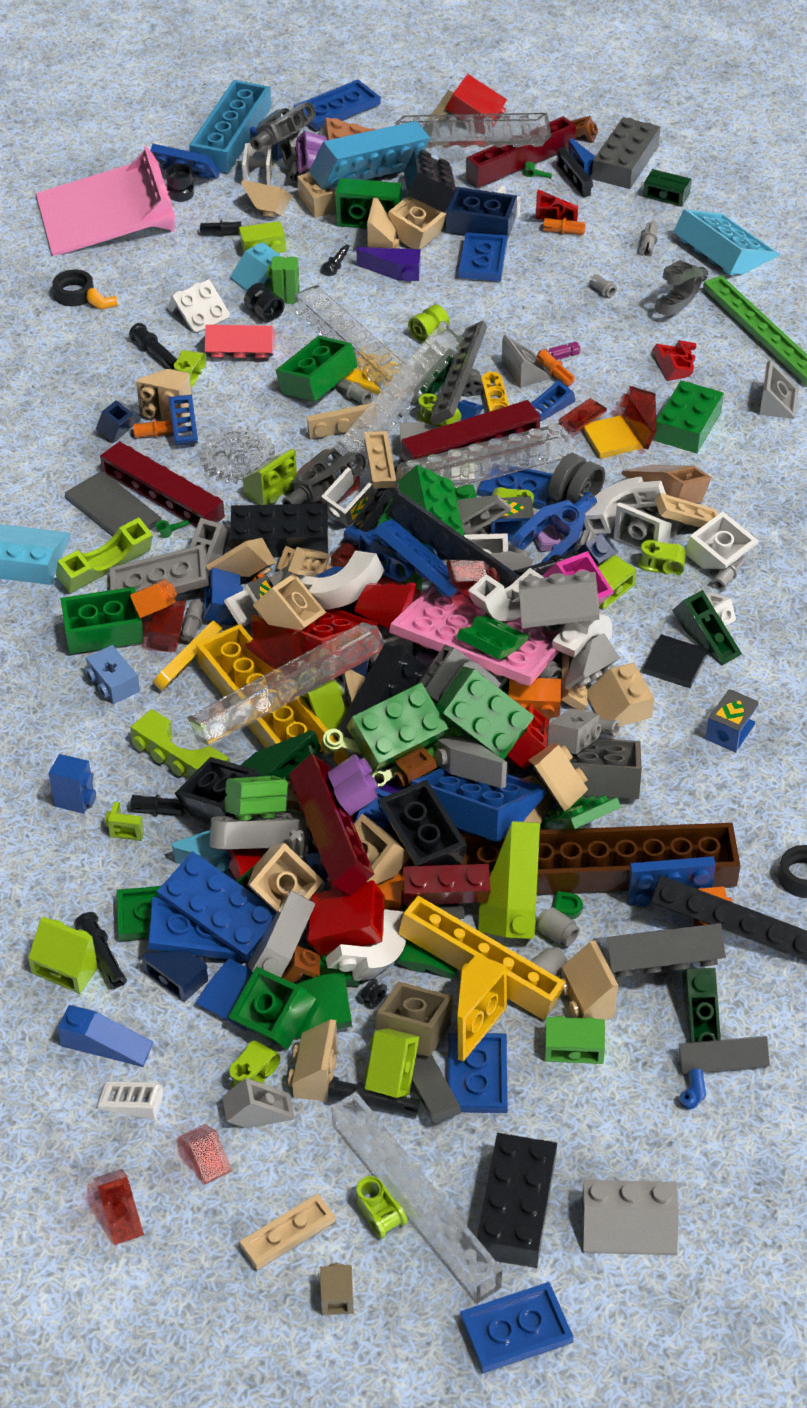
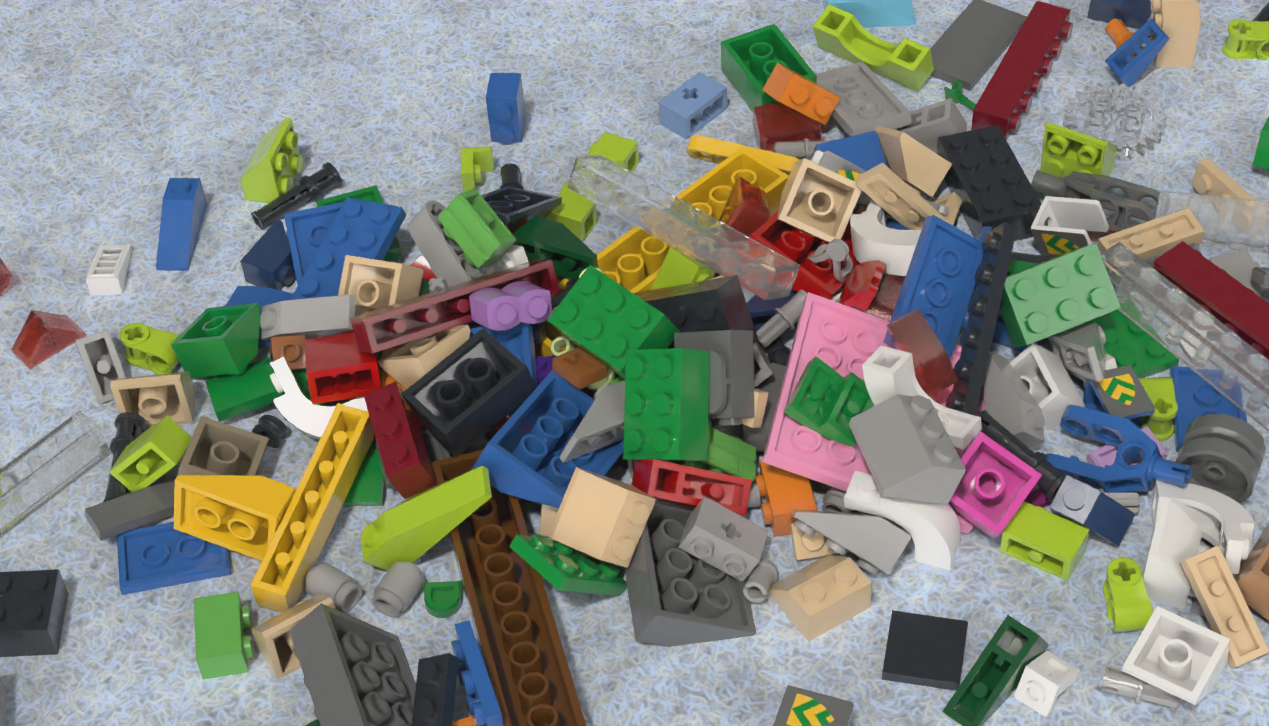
camera: 80 degrees right, 0 degrees up
(355, 601) = (837, 251): none -> light grey piece

